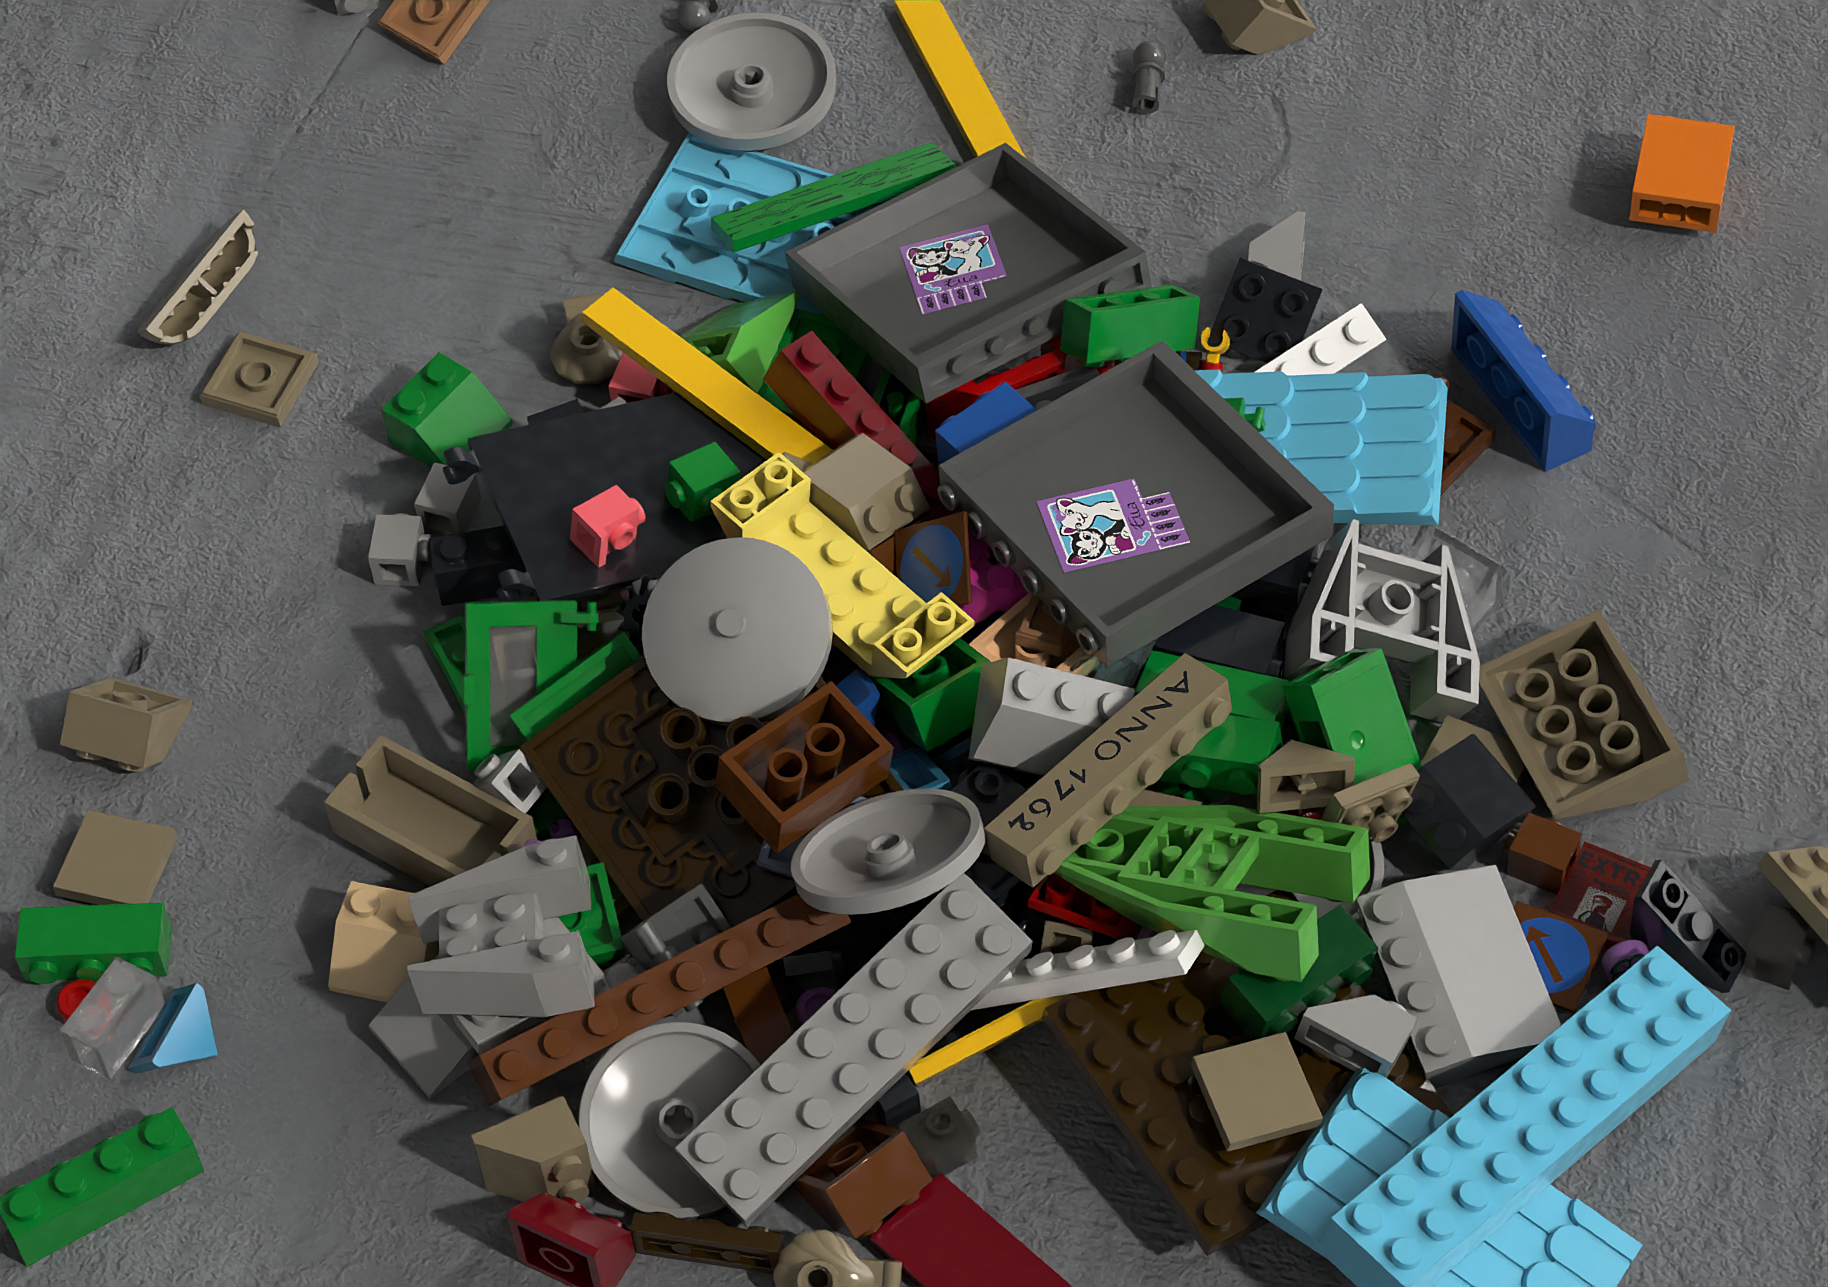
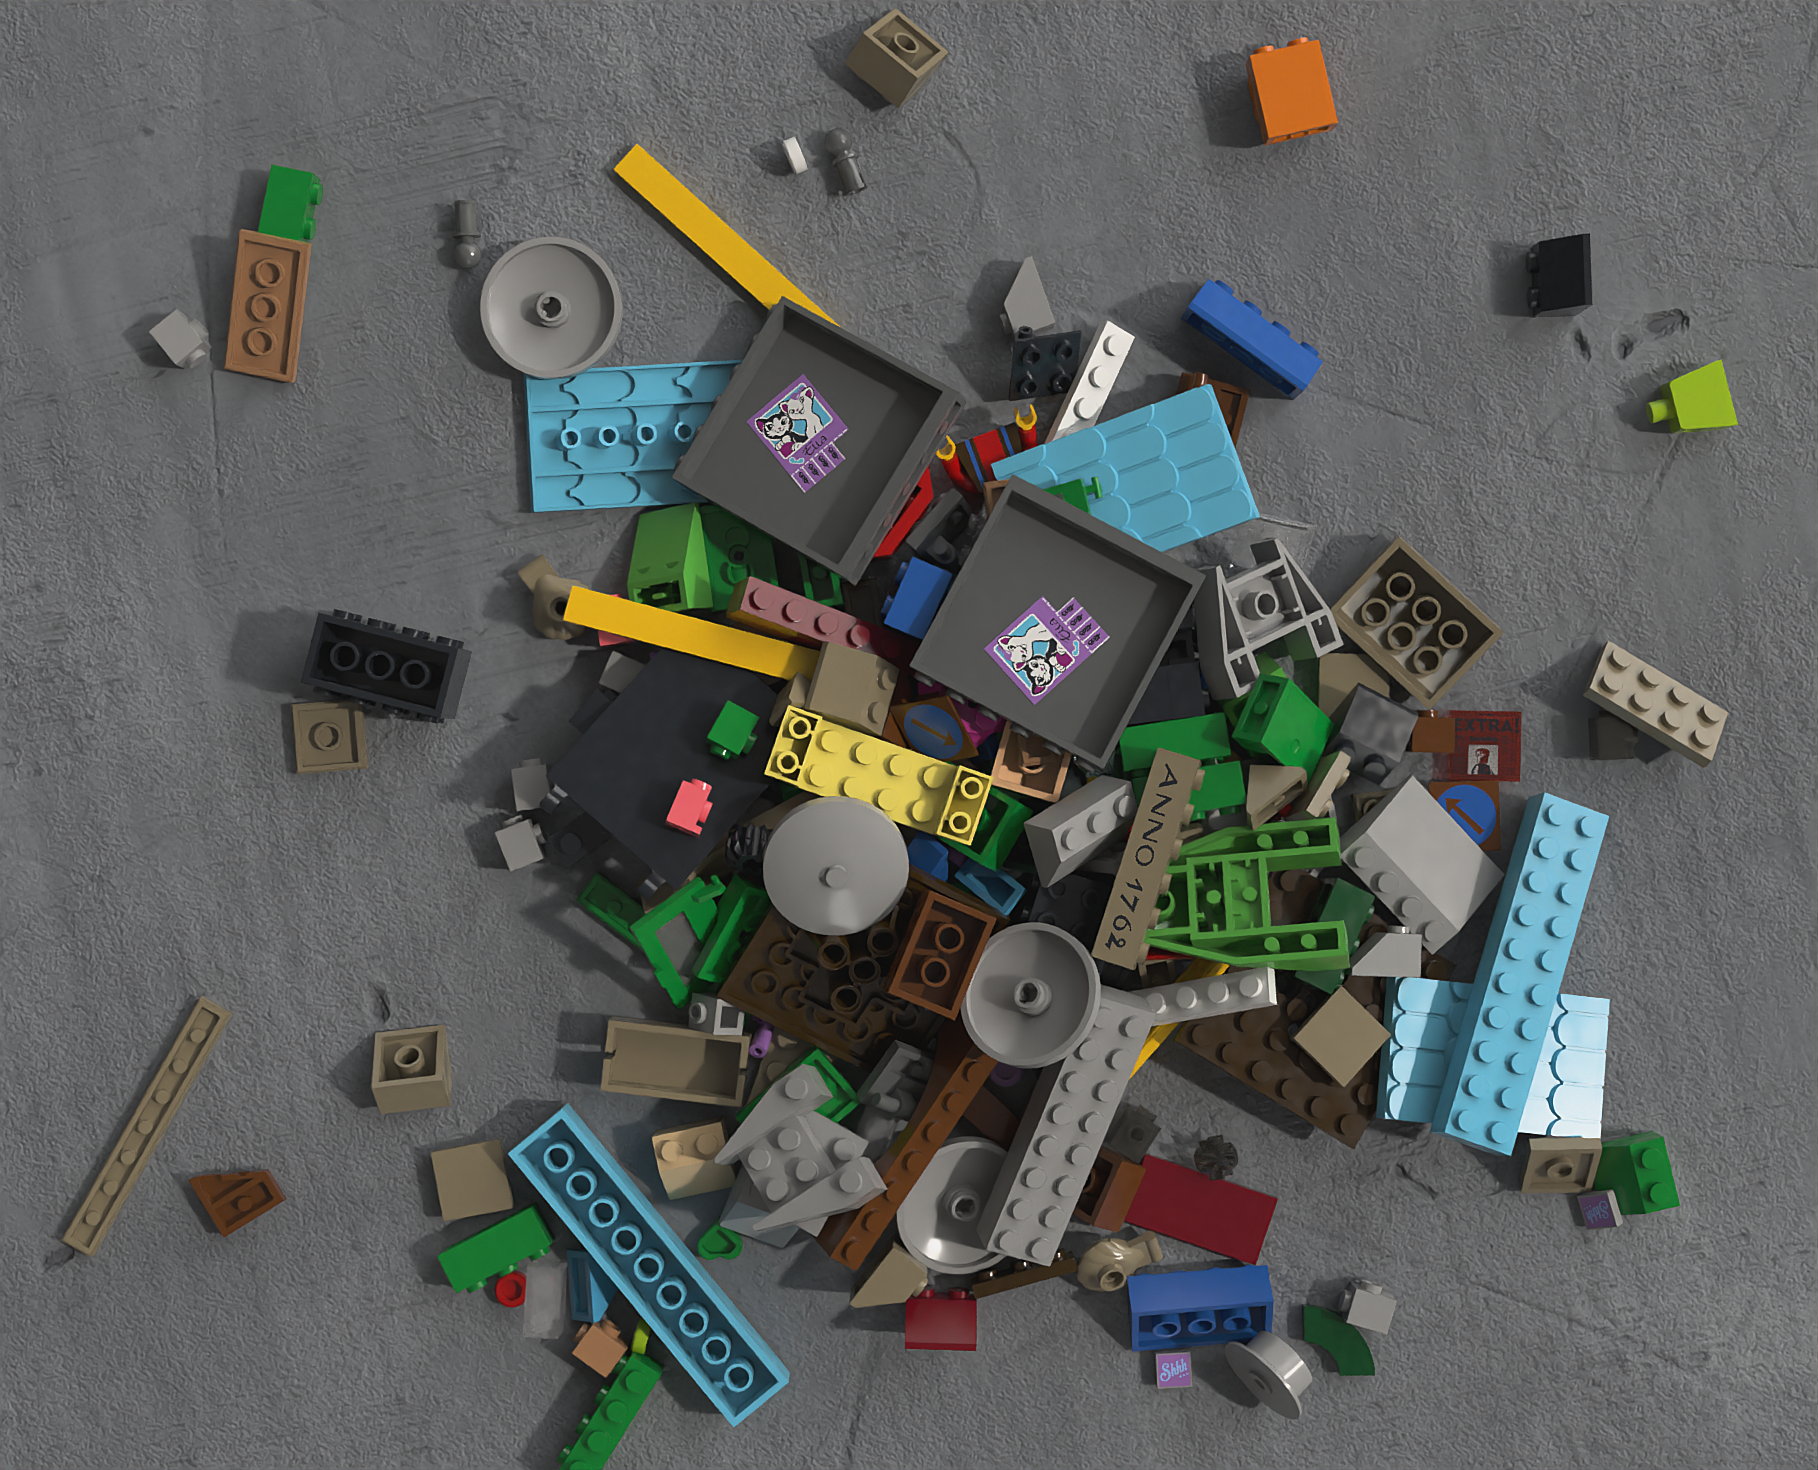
camera: 35 degrees left, 35 degrees up
(139, 1092) = (600, 1345): none -> medium nougat brick
(200, 1111) = (641, 1337): none -> lime tile
(203, 284) = (238, 680): dark tan brick -> none
(261, 1035) = (650, 1265): none -> medium azure brick
(357, 1056) = (719, 1242): none -> green tile
(361, 305) = (386, 666): none -> black brick
(441, 411) = (492, 717): green slope -> none
(829, 197) = (673, 396): green tile -> none
(1028, 1208) = (1216, 1157): none -> clear smoke gear
(1095, 50) = (794, 155): none -> white tile
(1127, 323) = (967, 445): green brick -> none
(1622, 958) = (1518, 794): medium lavender tile -> none
(1679, 924) = (1552, 761): black slope -> none

